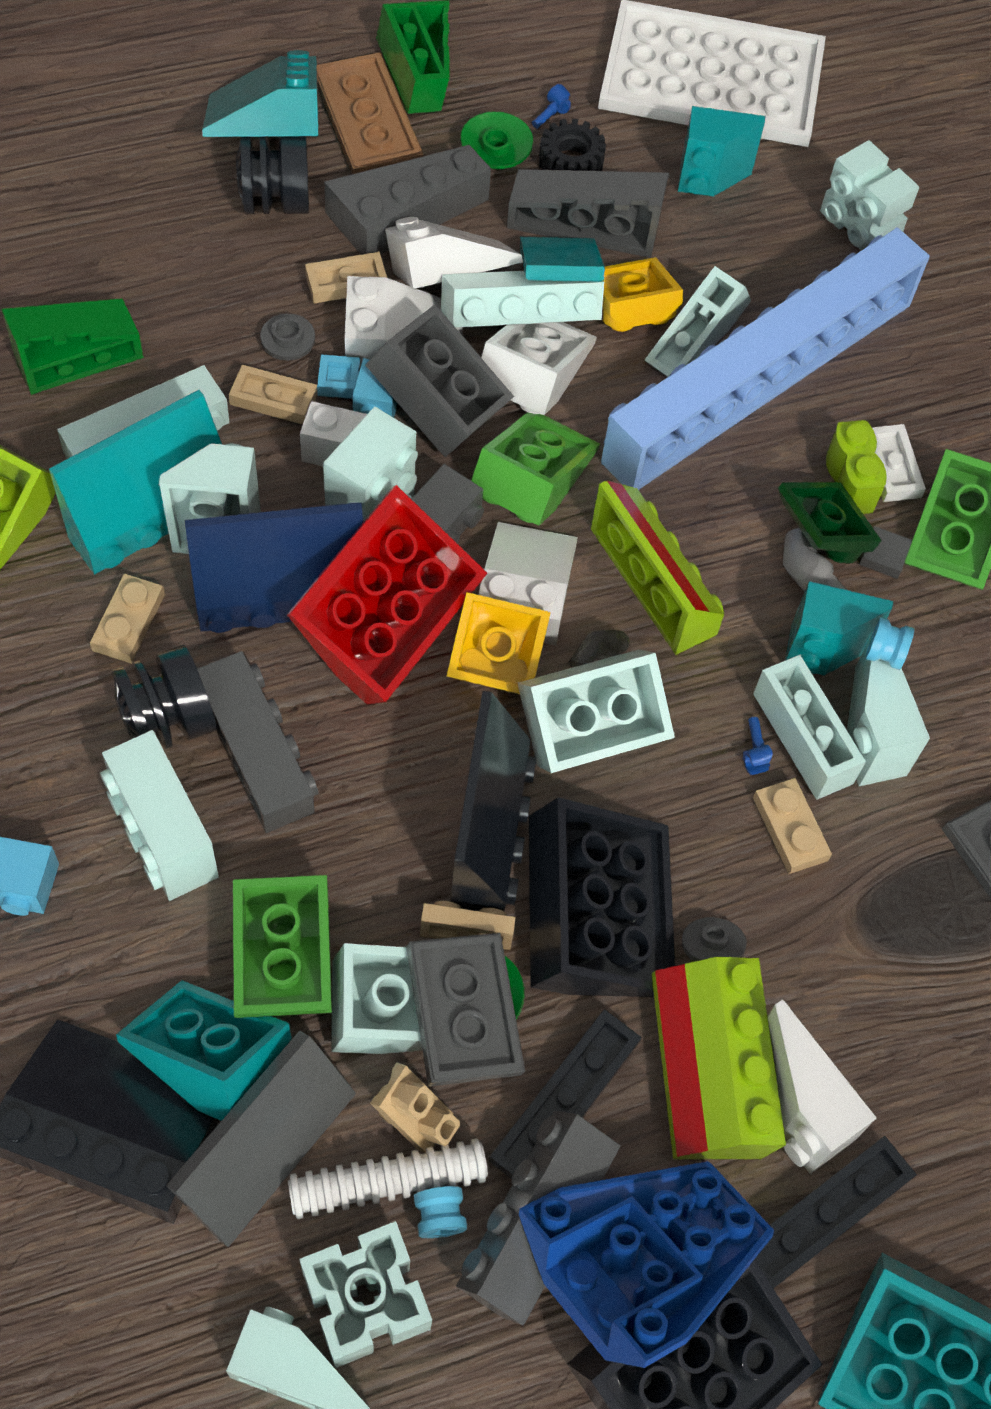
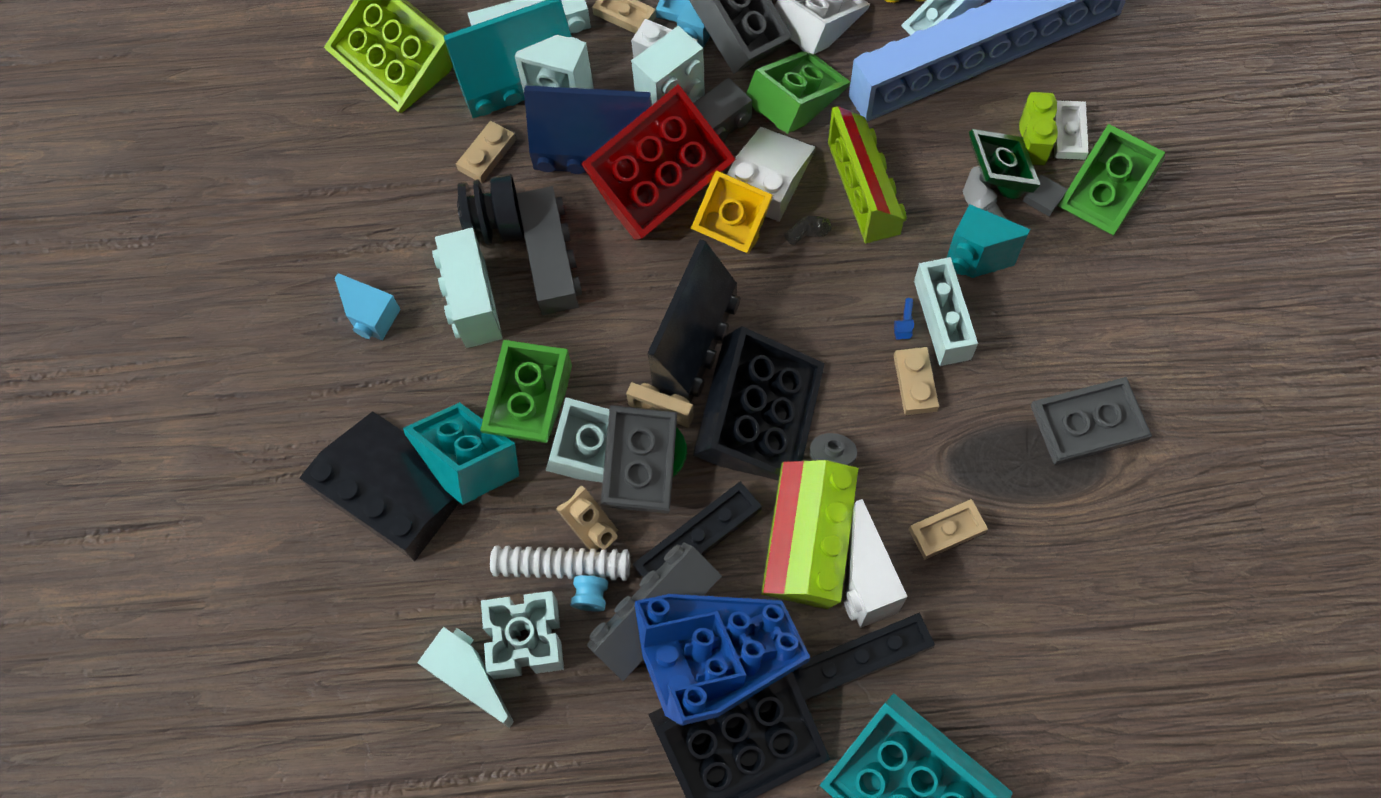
camera: 25 degrees right, 5 degrees up
(262, 1139) = (481, 517): dark grey tile -> none
(596, 710) = (790, 271): light aqua brick -> none
(884, 721) = (1003, 321): light aqua slope -> none
(888, 1015) = (948, 529): none -> tan plate
(890, 643) = (1015, 258): medium azure wheel -> none

